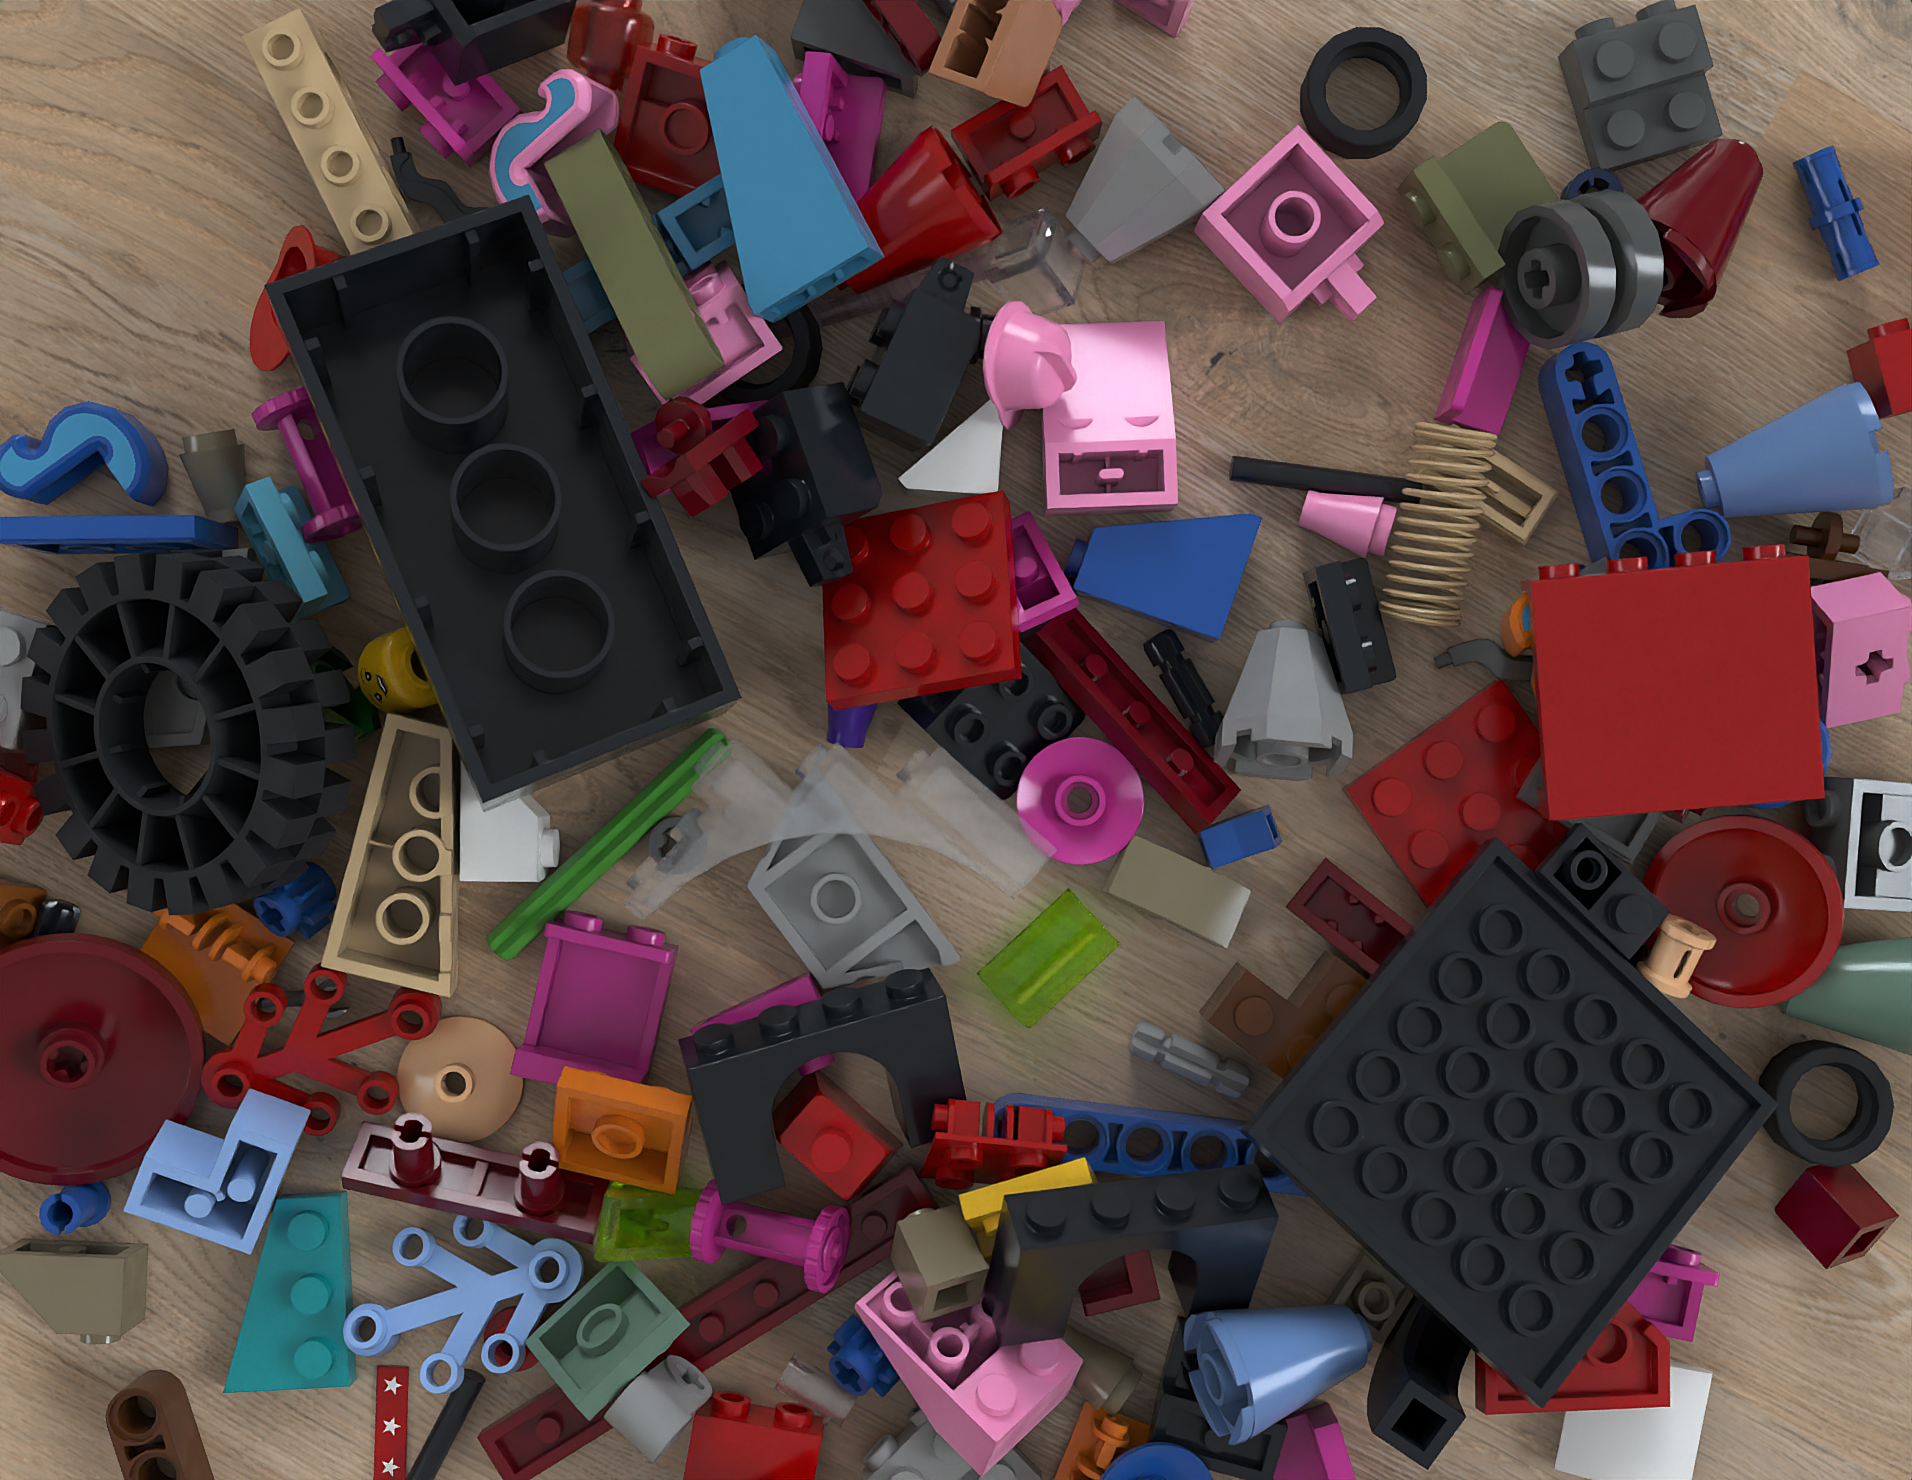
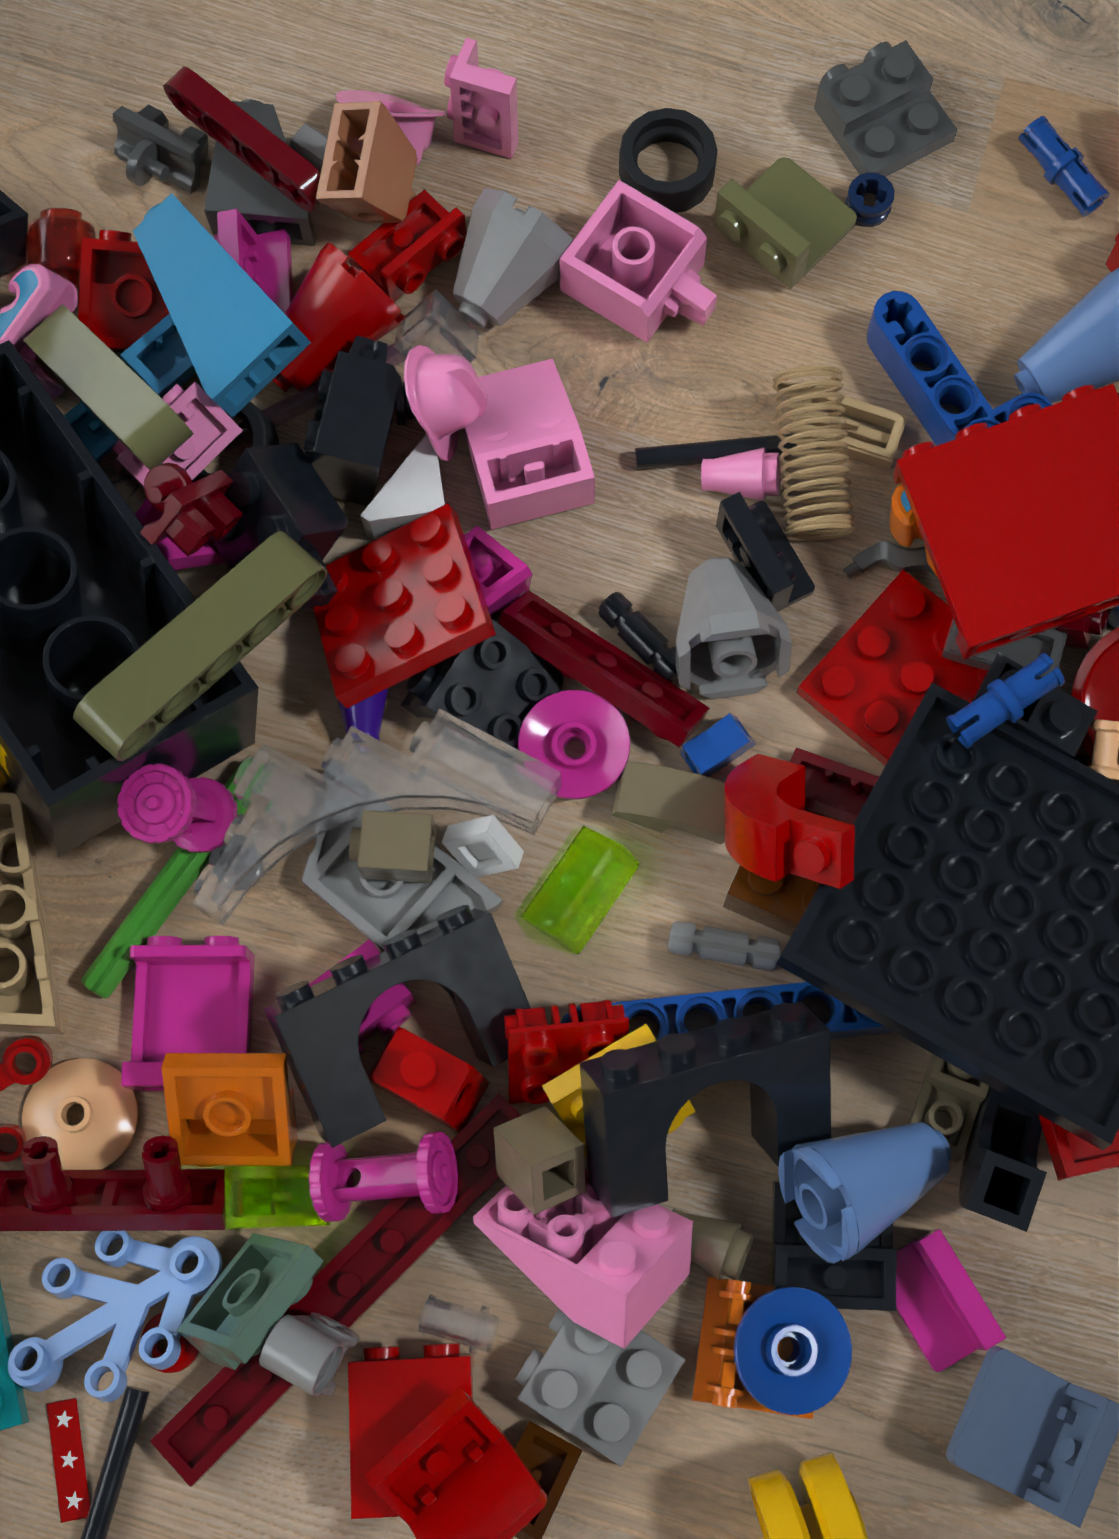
camera: 10 degrees left, 15 degrees down
(506, 841) = (81, 888): white slope -> none
(614, 800) = (166, 806): none -> dark pink hose
(686, 644) = (199, 646): none -> olive beam
(855, 882) = (394, 846): none -> dark tan brick
(860, 1360) = (493, 1279): blue gear -> none
(953, 896) = (483, 846): none -> white plate
(1120, 1284) = (704, 1144): dark red panel -> none
(1167, 570) = (600, 543): blue slope -> none
(1266, 982) = (774, 833): none -> red arch
(1483, 368) = (822, 327): dark pink panel -> none
(1572, 889) = (1005, 700): none -> blue pin
(1580, 268) = (871, 235): dark grey wheel -> none
(1699, 221) = (943, 201): dark red cone -> none

